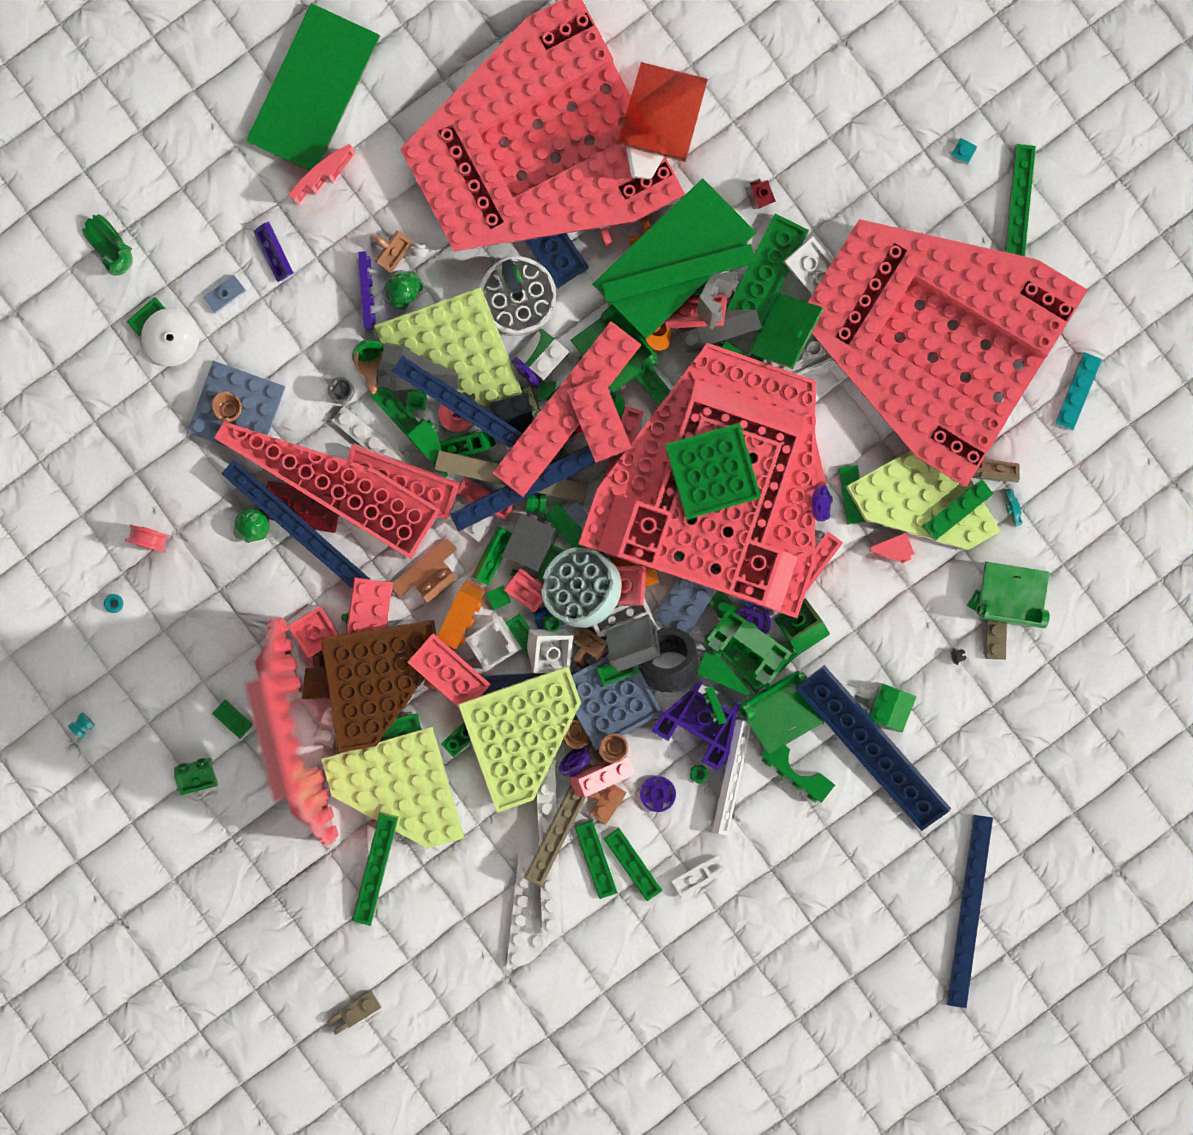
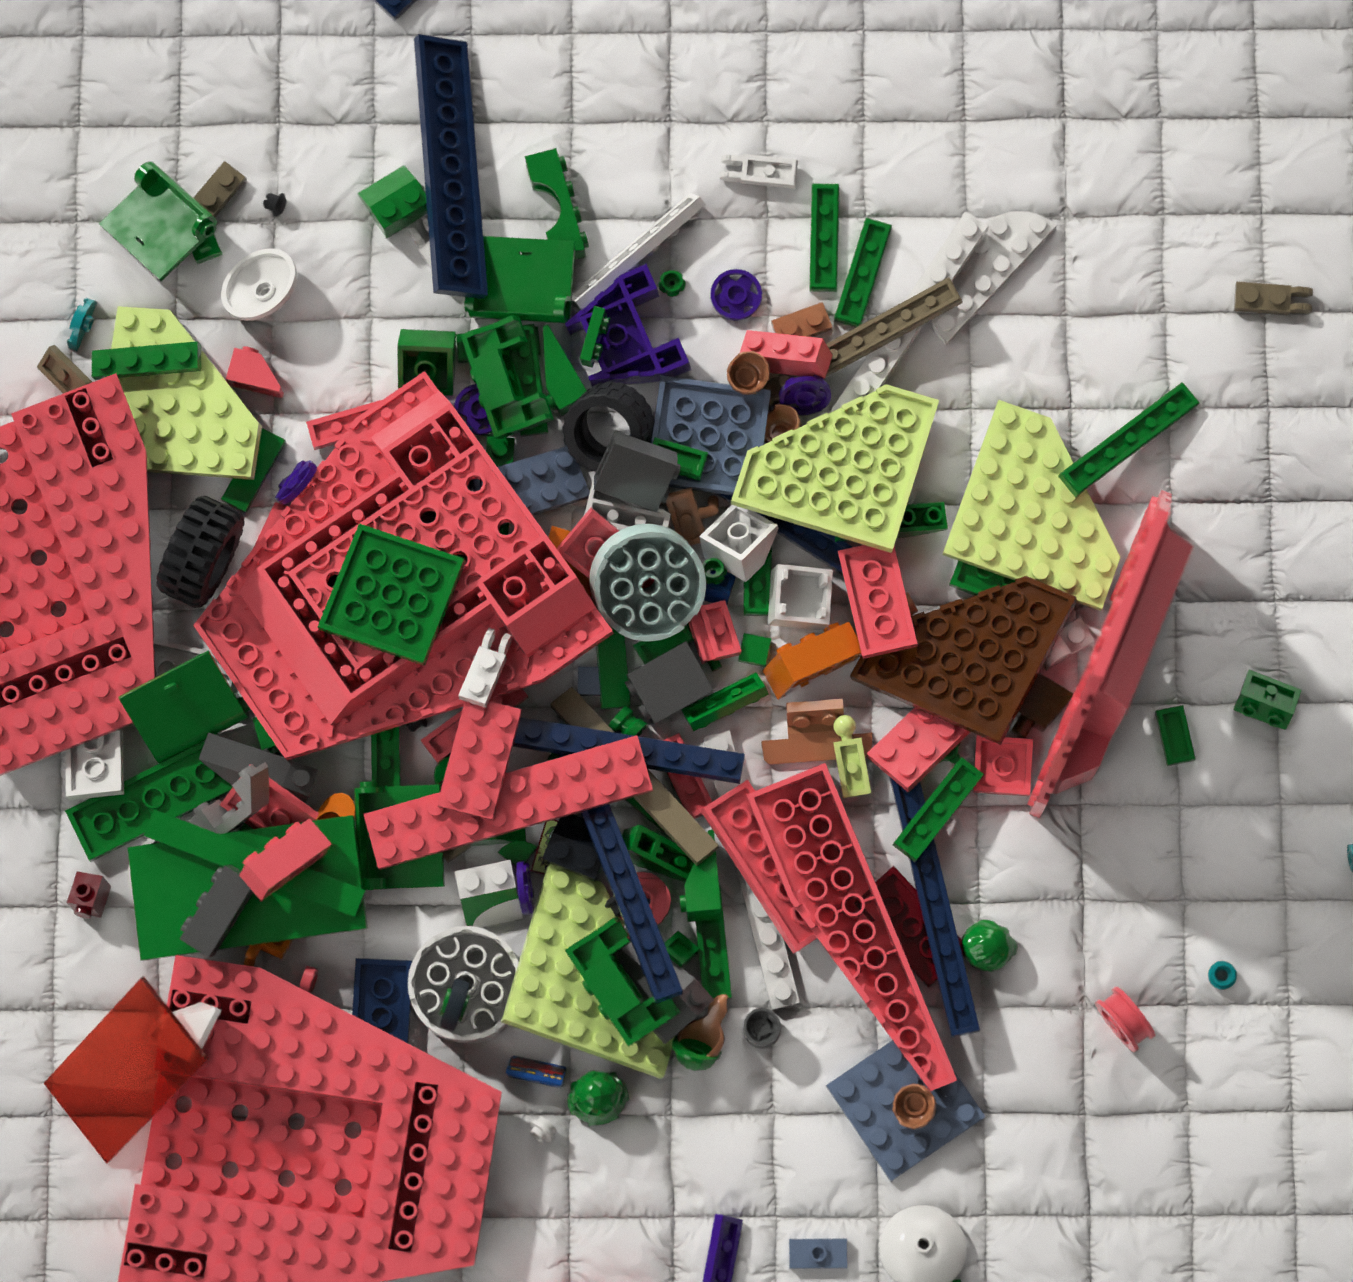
camera: 145 degrees left, 10 degrees down
(330, 579) = (938, 809): none -> green plate
(366, 282) = (648, 1117): dark purple plate -> none
(392, 250) = (575, 1153): nougat plate -> none
(400, 573) = (850, 759): none -> yellowish green plate
(435, 350) = (612, 985): none -> green bracket
(446, 279) = (536, 1071): none -> slope
(631, 468) = (485, 670): none -> white hinge
(662, 284) = (284, 858): none -> coral brick
(678, 232) = (216, 911): none -> dark grey brick
(841, 422) = (200, 551): none -> black tyre
(936, 600) = (259, 284): none -> white dish

